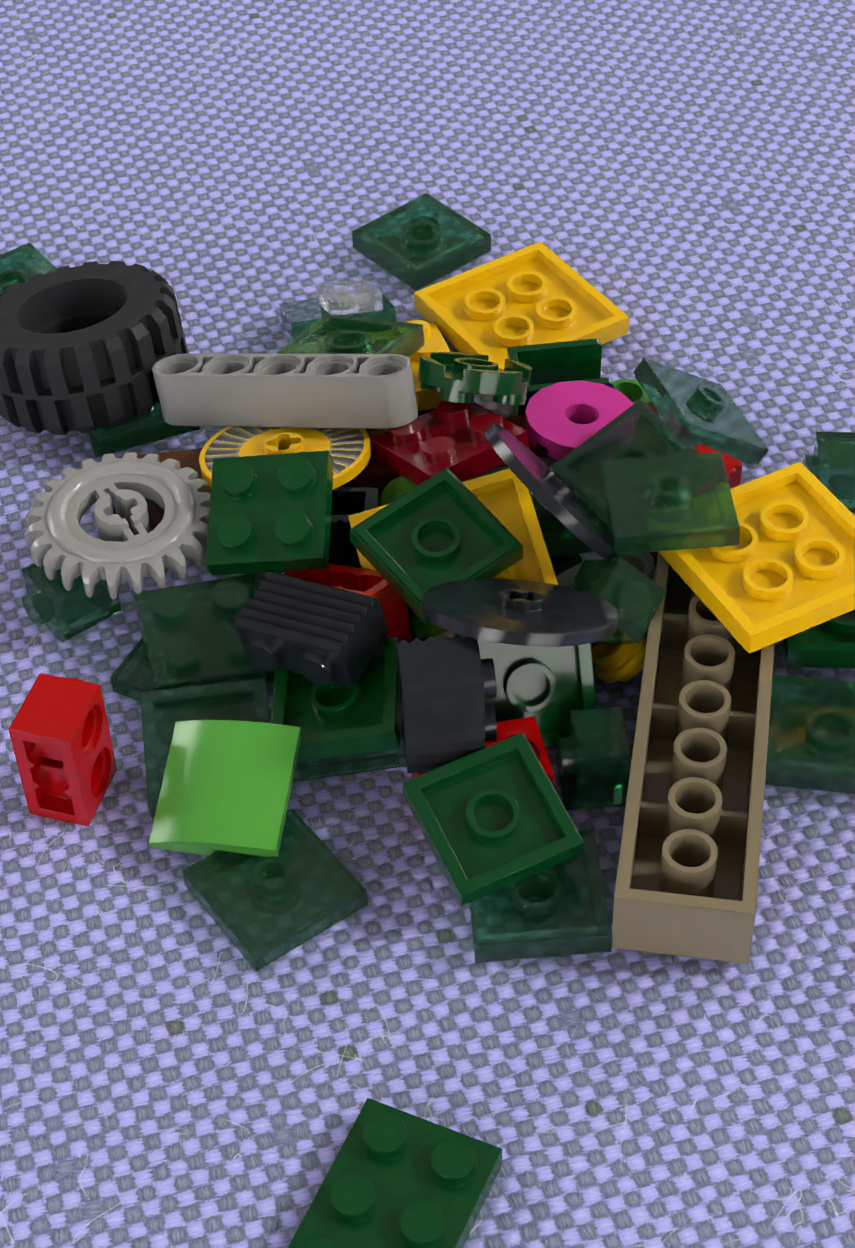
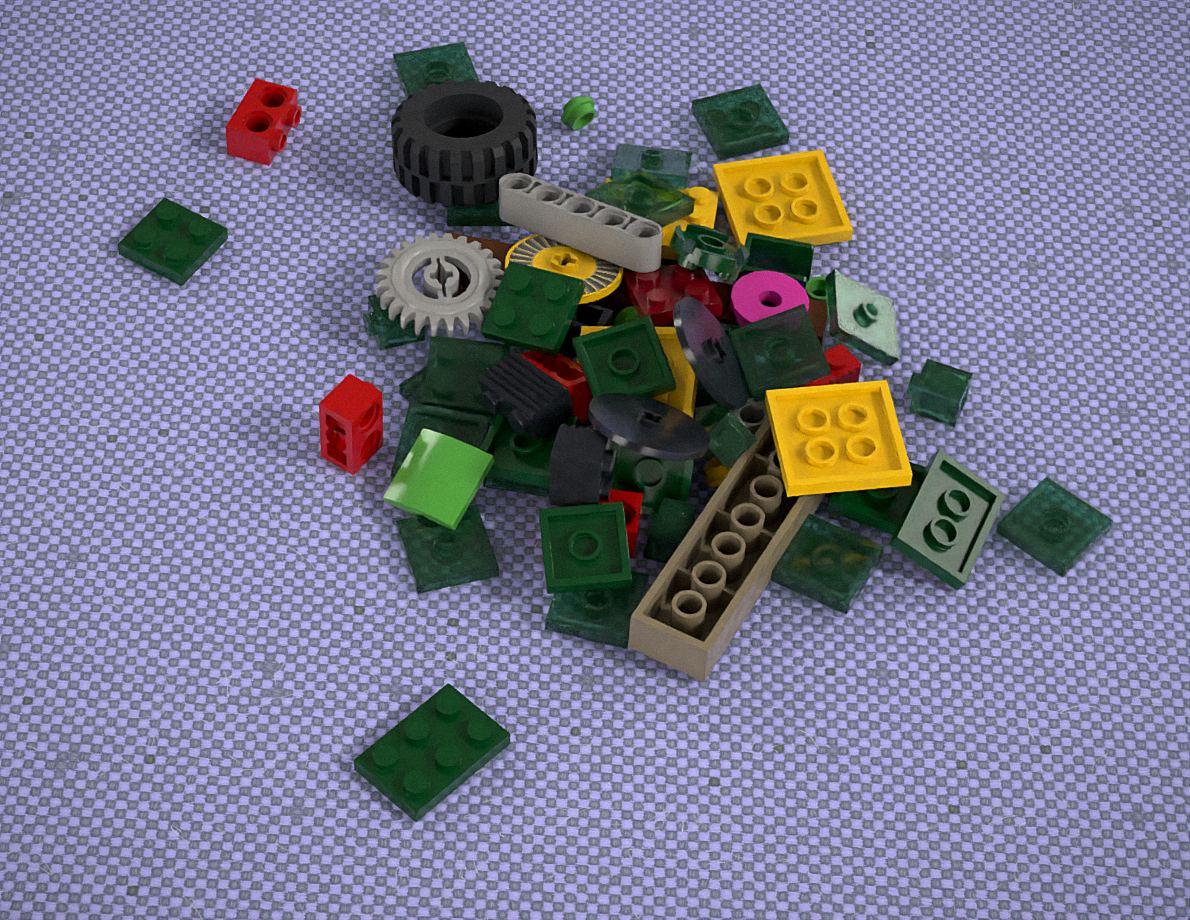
camera: 15 degrees right, 5 degrees up
(213, 282) = (578, 112): none -> bright green plate
(350, 297) = (659, 160): clear tile -> none
(669, 503) = (782, 382): clear green plate -> none

